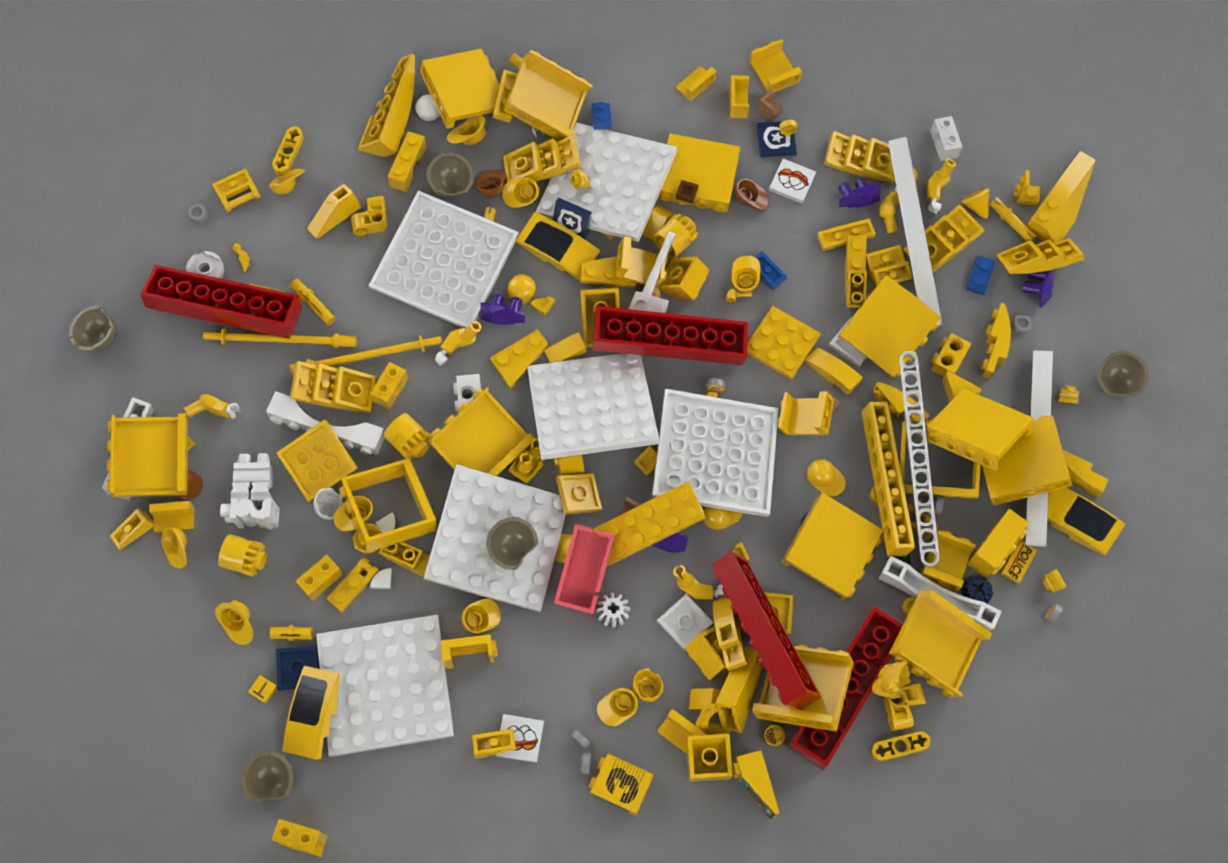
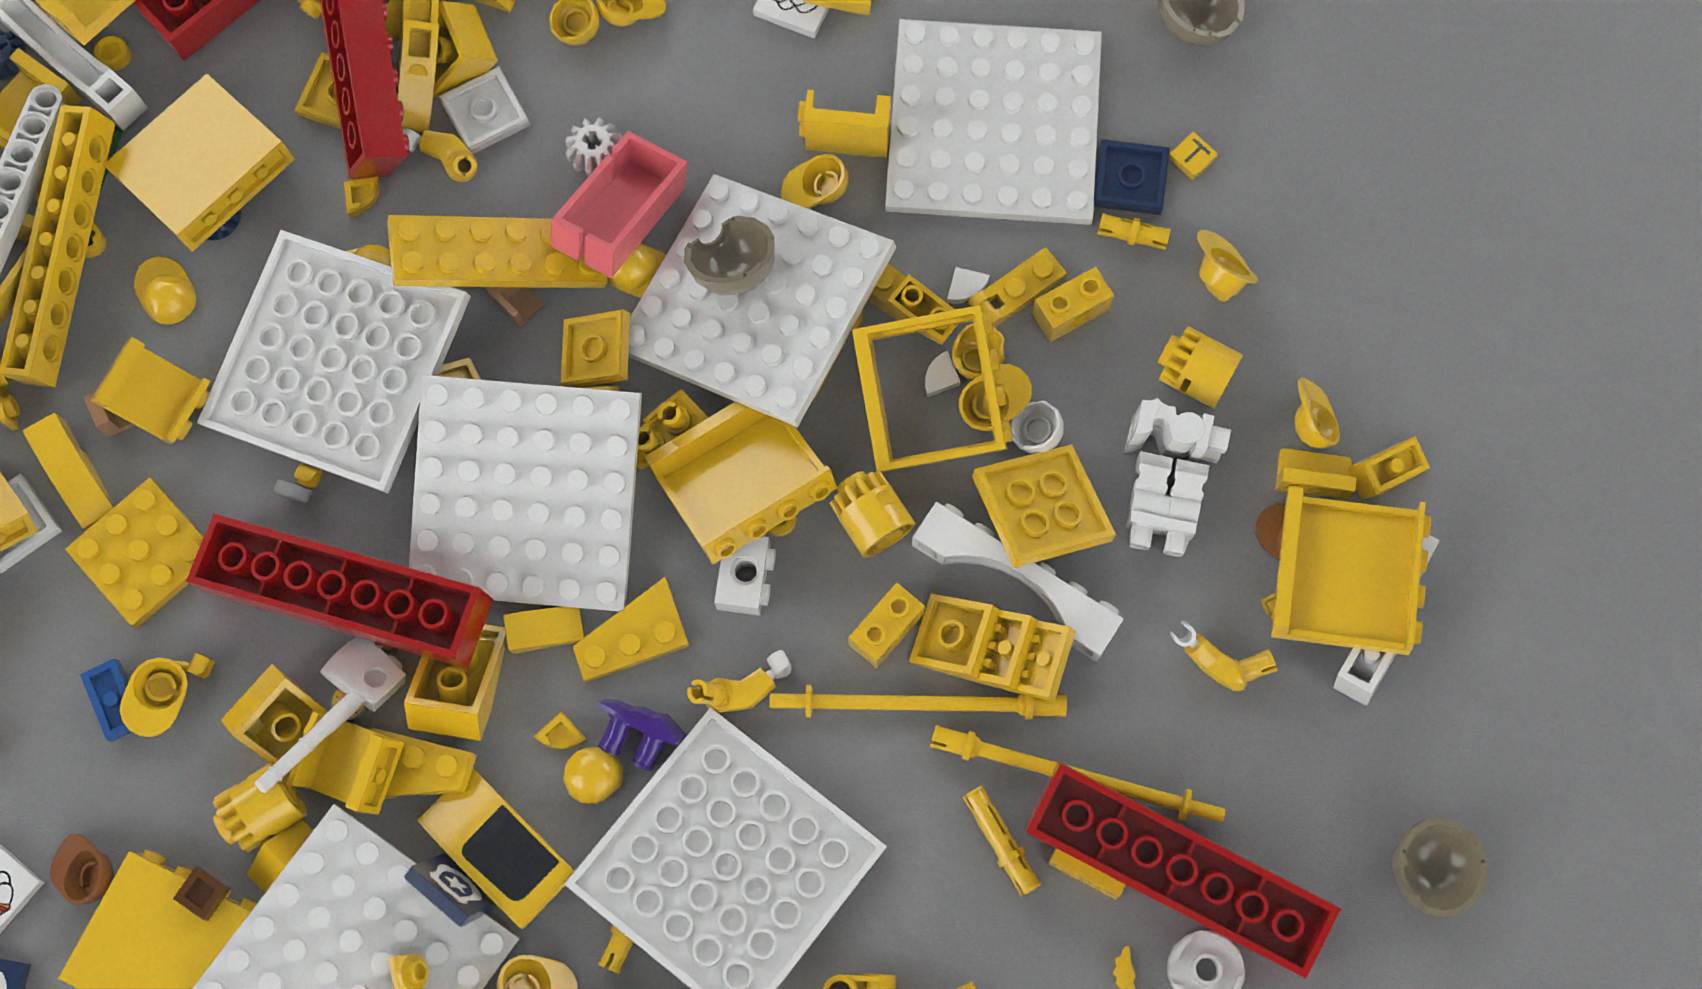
camera: 160 degrees left, 5 degrees up
(311, 712) = (1118, 90): yellow slope -> none

